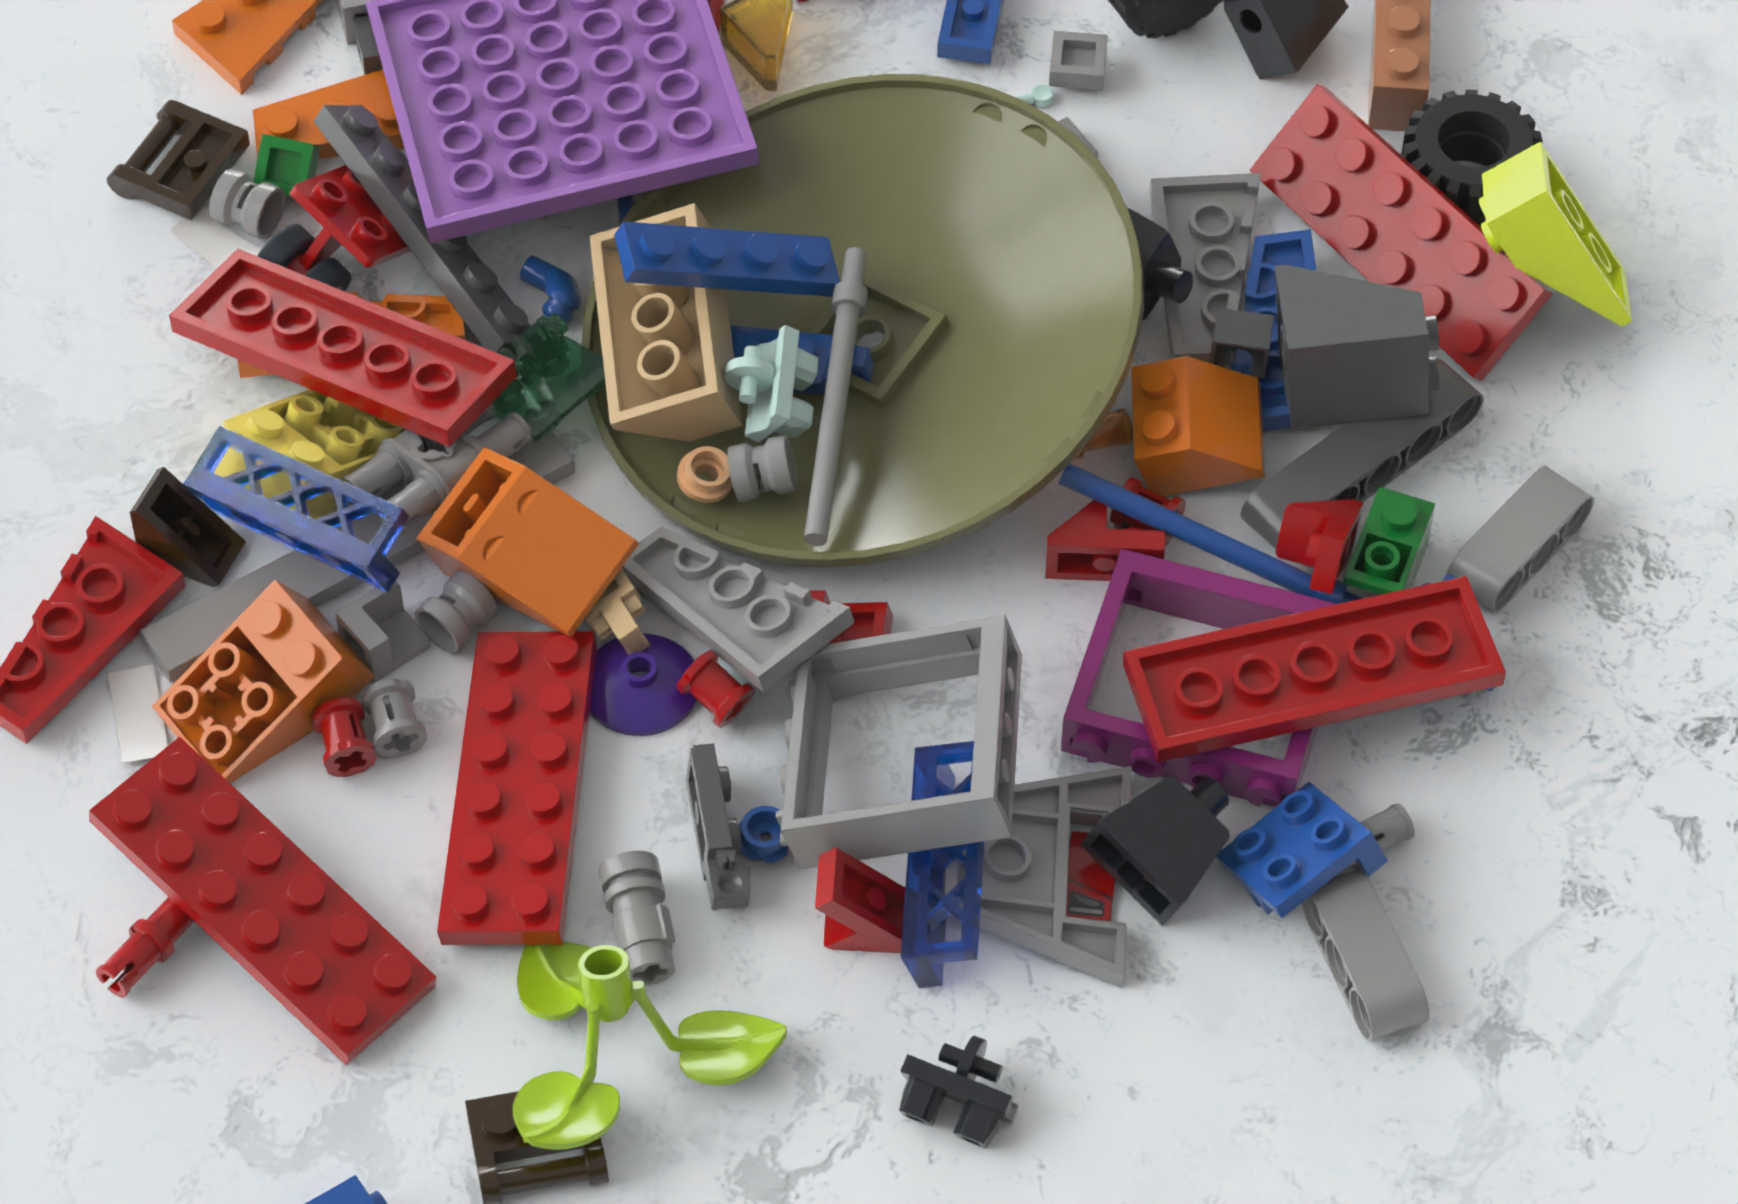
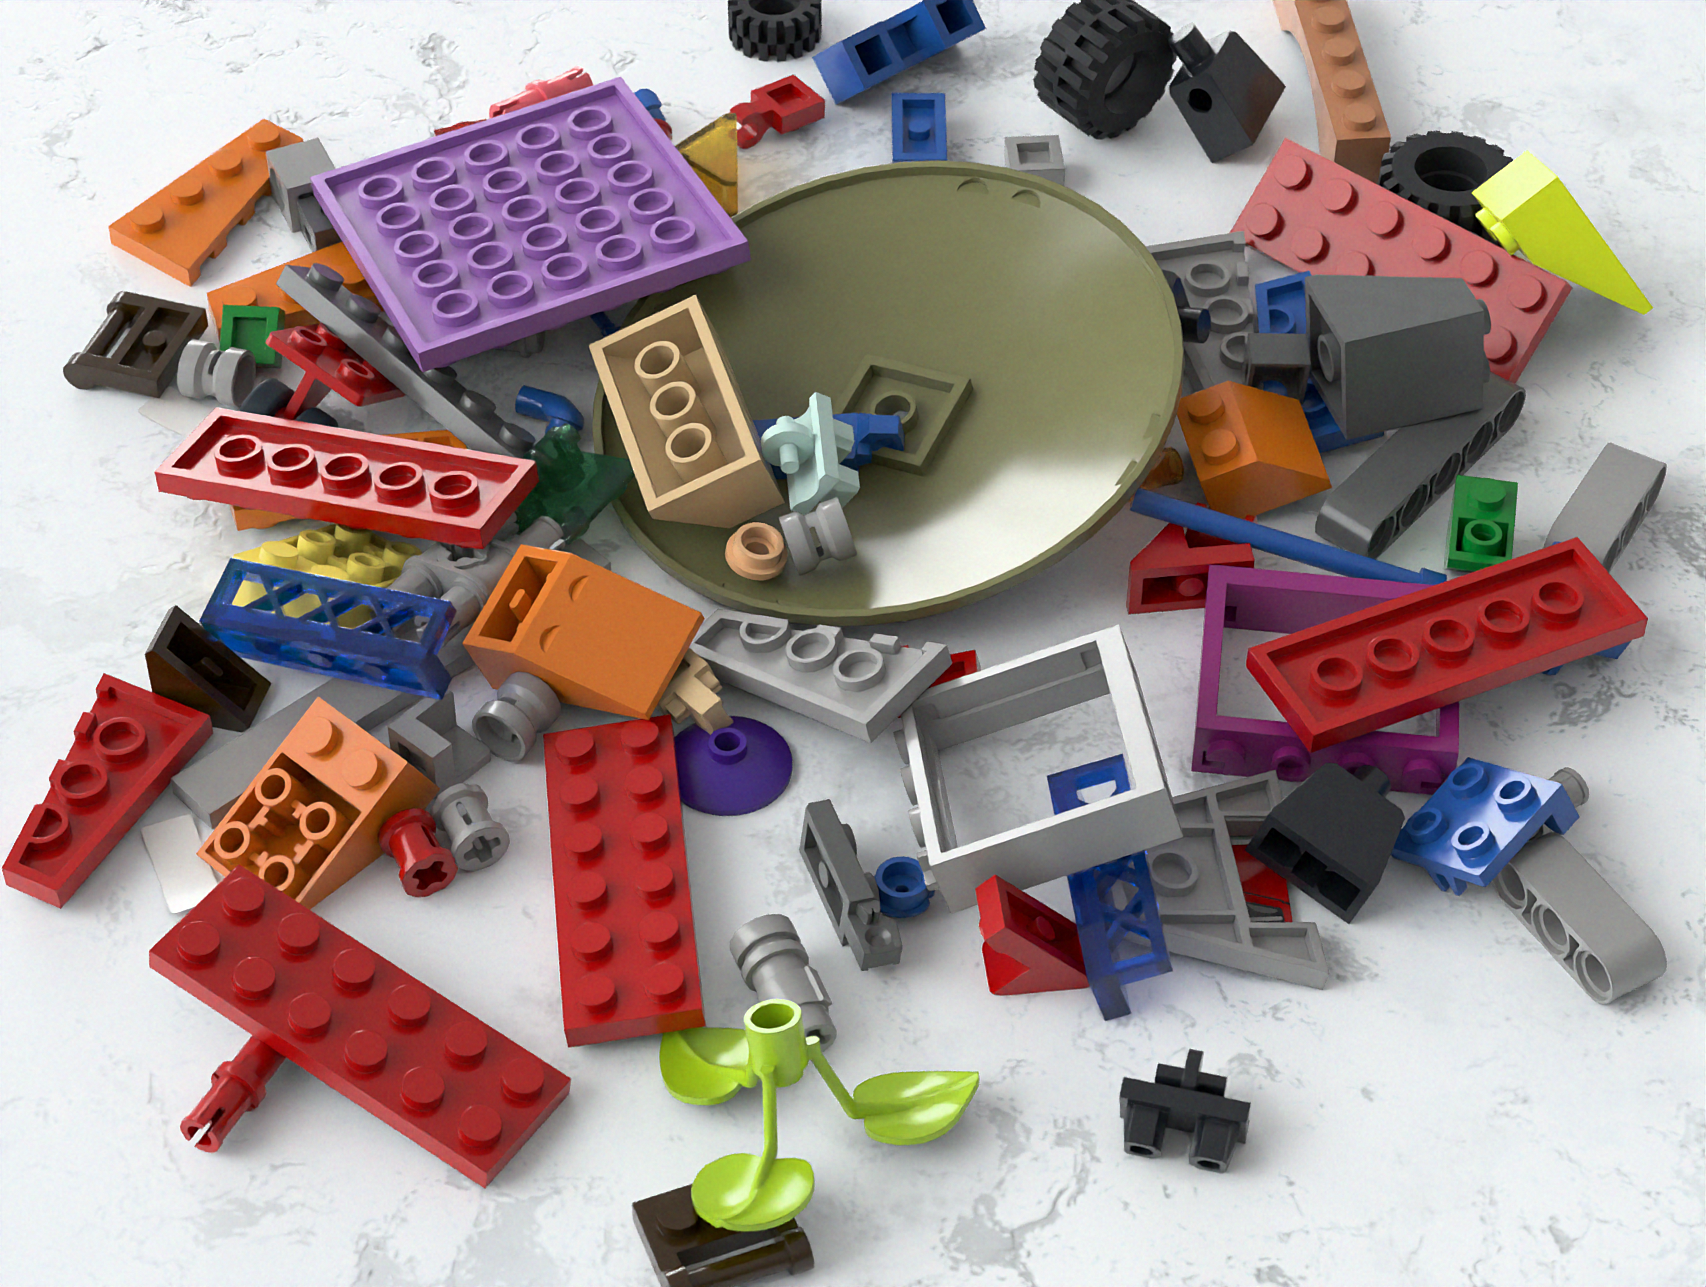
camera: 10 degrees left, 10 degrees down
(715, 688) = (814, 752): red bush -> none
(726, 259) = (740, 339): blue plate -> none
(848, 305) = (872, 377): light grey bar -> none
(1320, 538) = (1407, 531): red slope -> none

